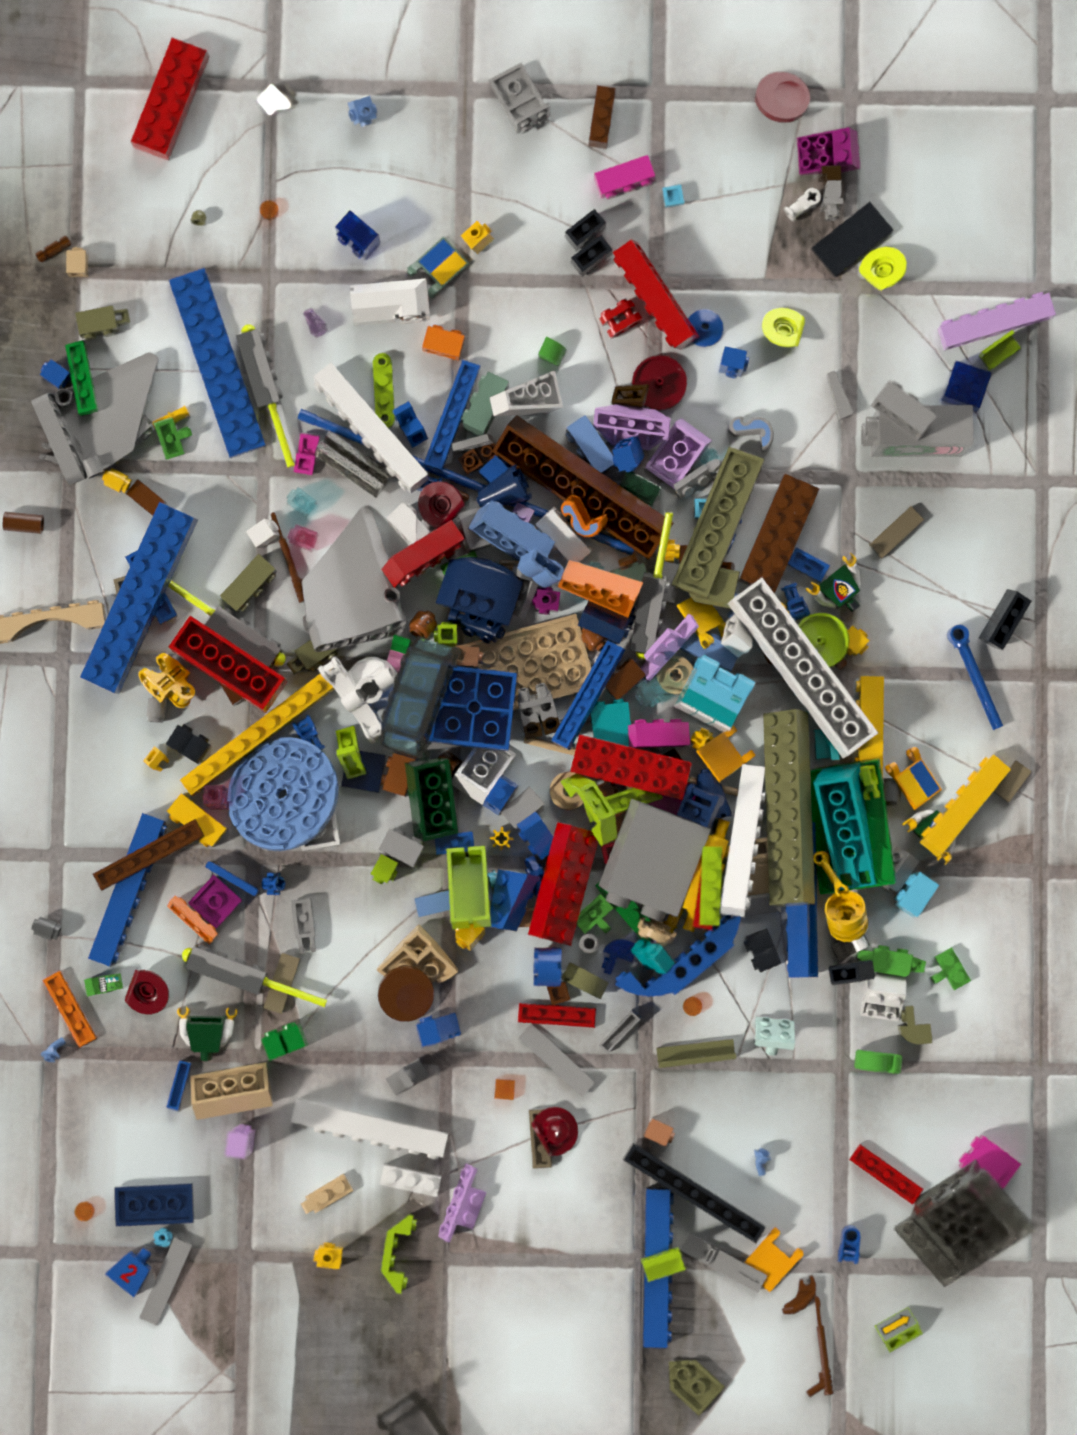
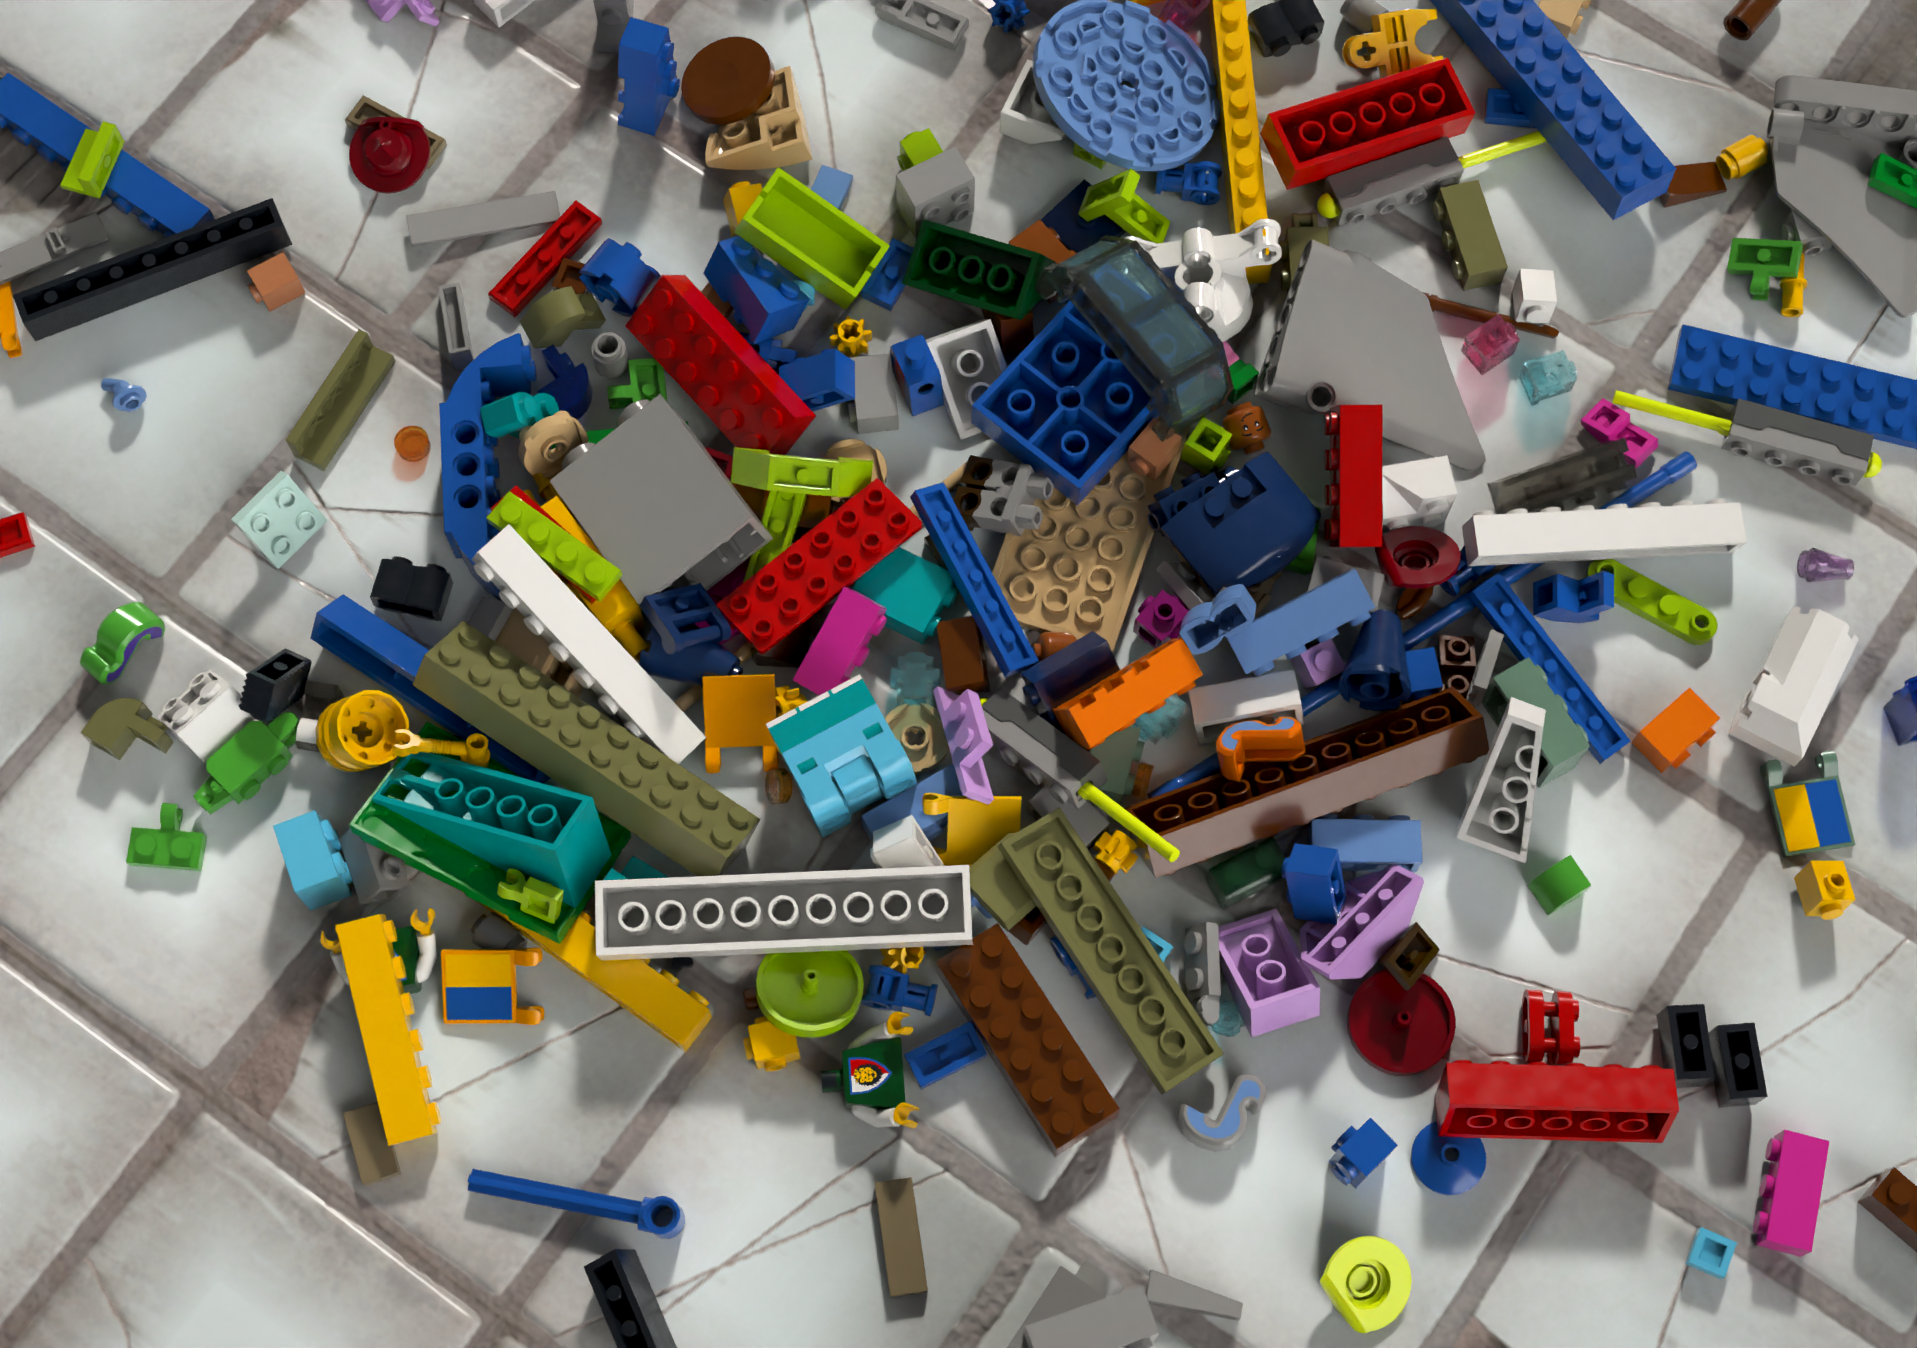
camera: 125 degrees right, 15 degrees down
(504, 1089) = (498, 129): clear orange tile -> none
(741, 719) = (778, 786): none -> clear orange tile

